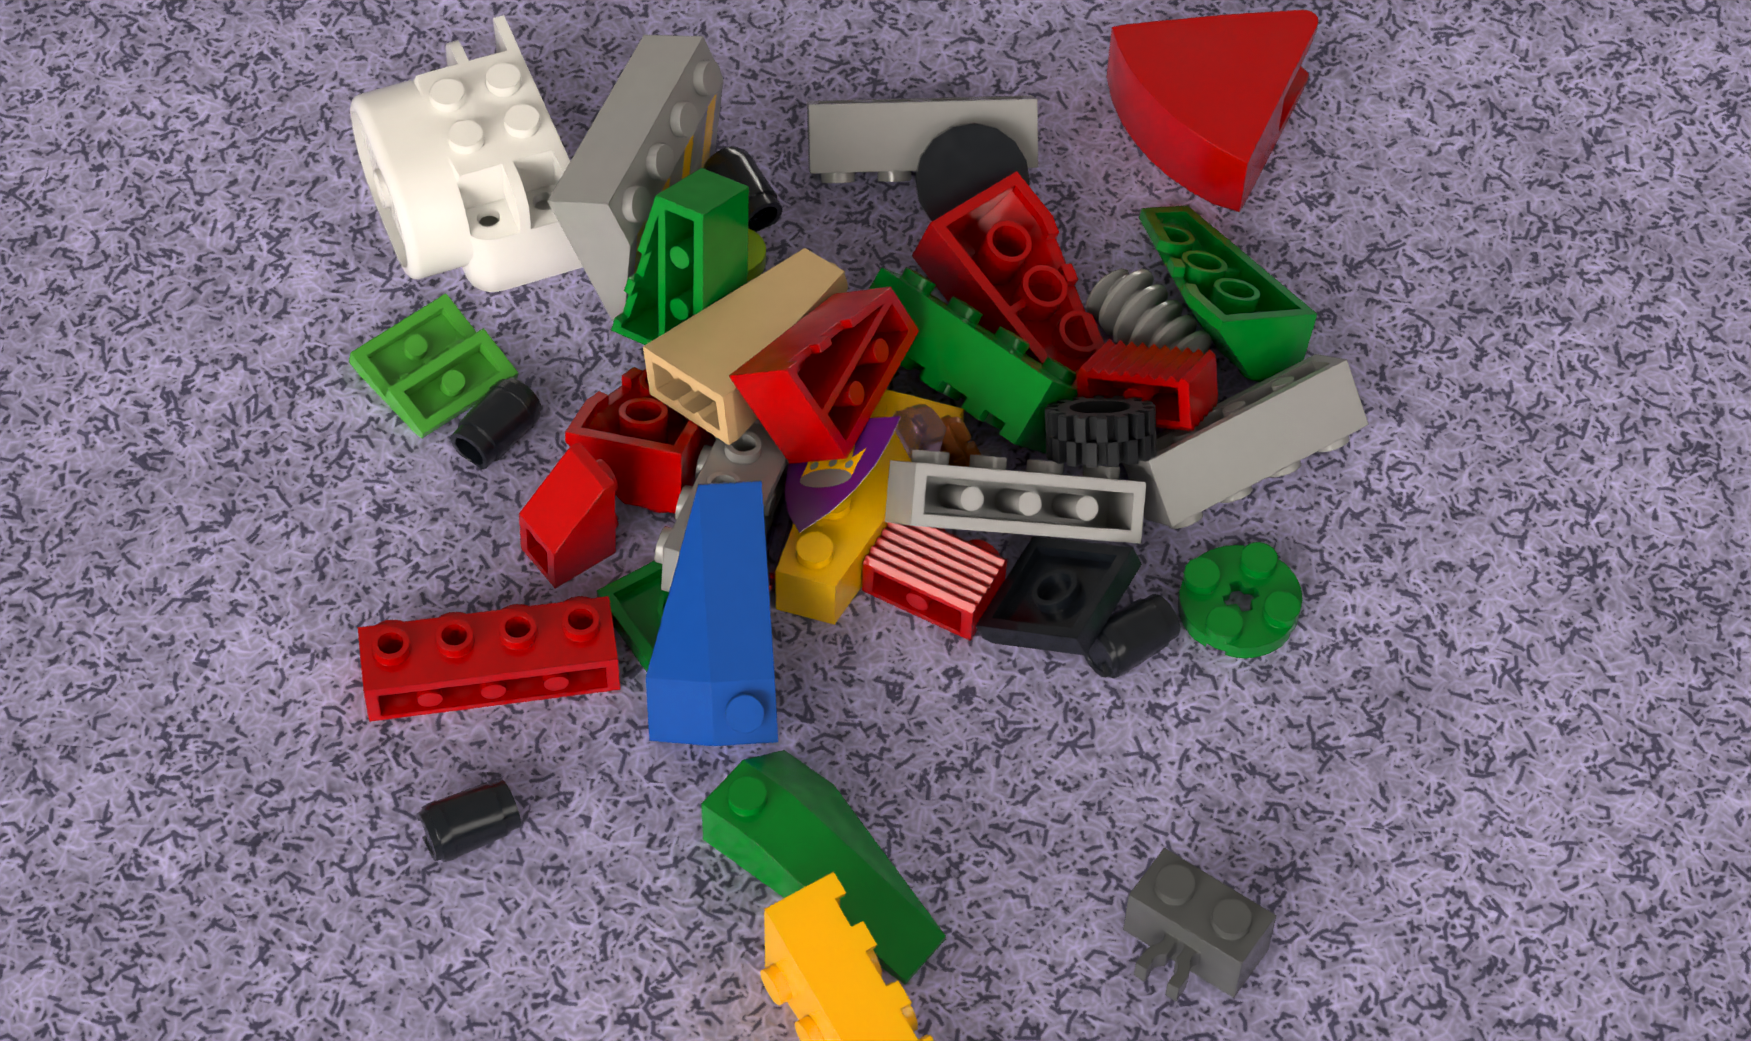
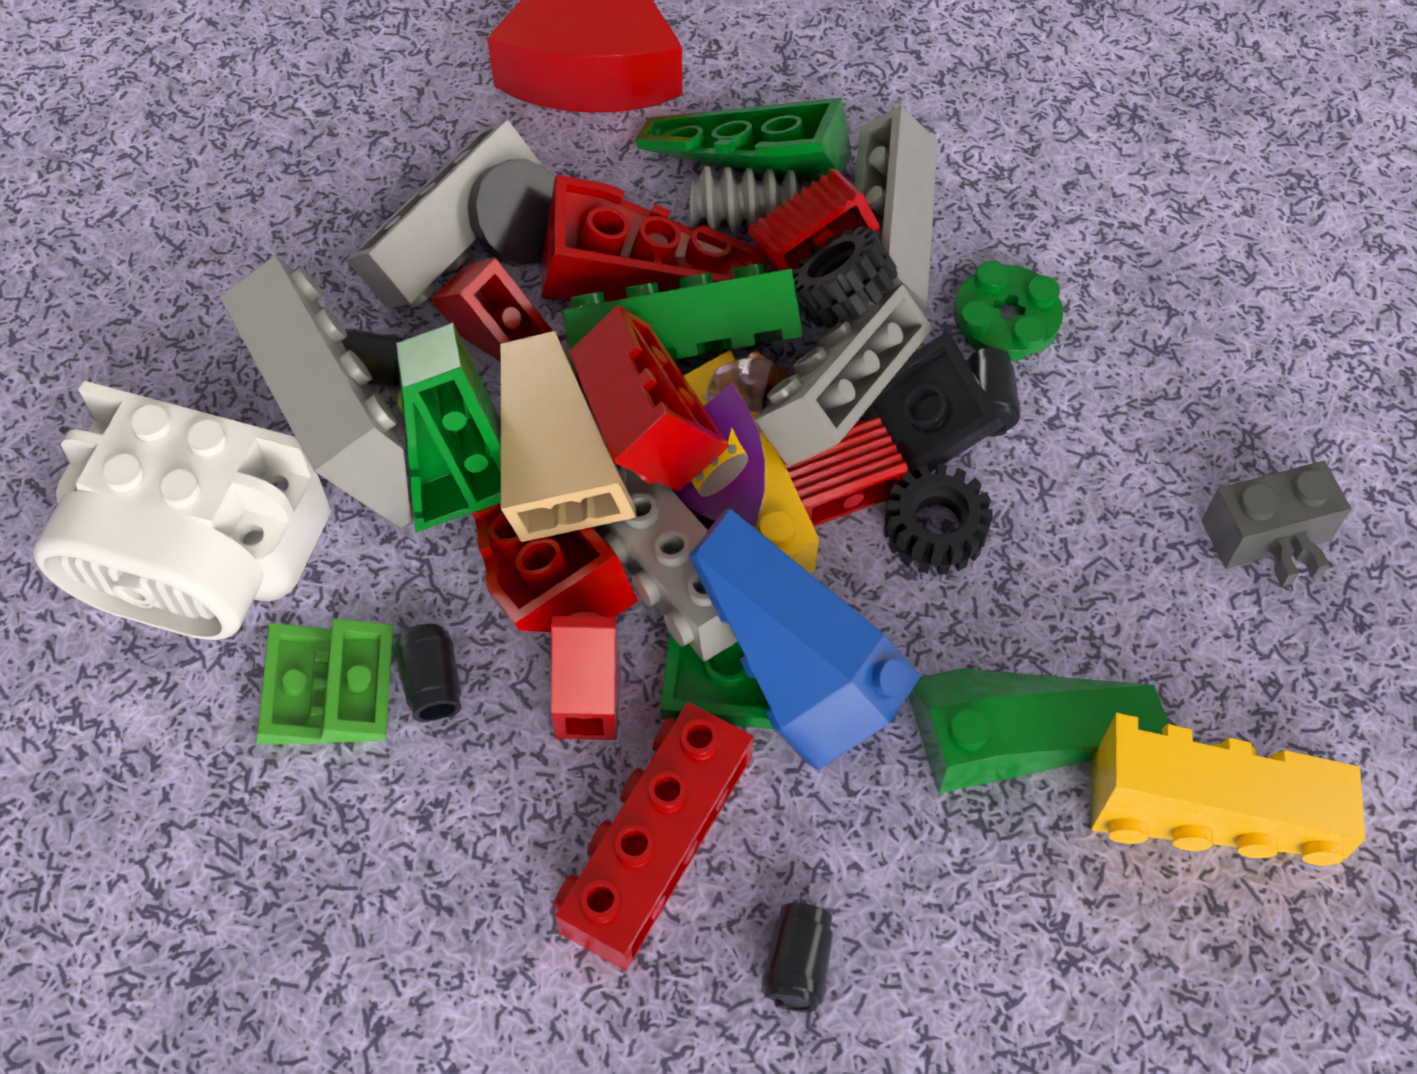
camera: 50 degrees left, 5 degrees up
(858, 230) = (488, 307): none -> red slope
(957, 643) = (945, 491): none -> black tyre

